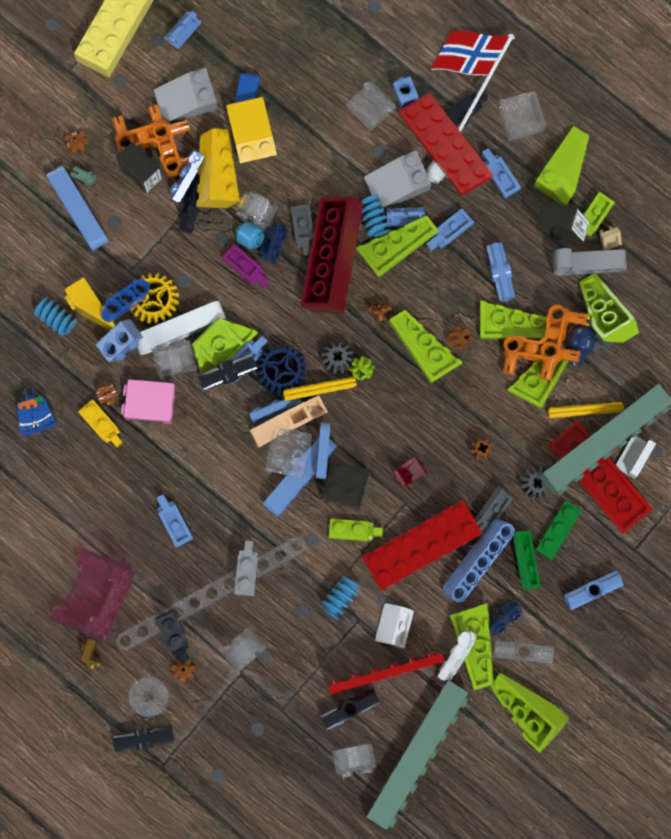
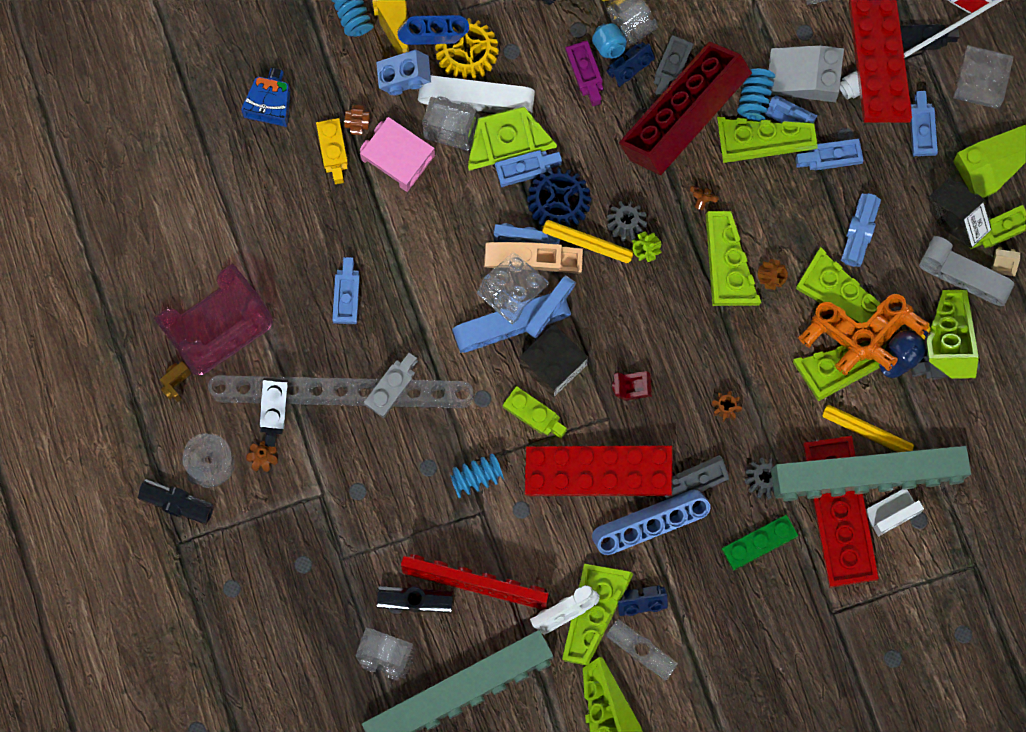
camera: 35 degrees right, 5 degrees down
(228, 372) = (498, 168): black piece -> none
(243, 649) = (338, 468): clear brick -> none
(394, 625) = (517, 540): white panel -> none
(526, 560) = (704, 553): green plate -> none
(604, 584) = (776, 629): medium blue piece -> none

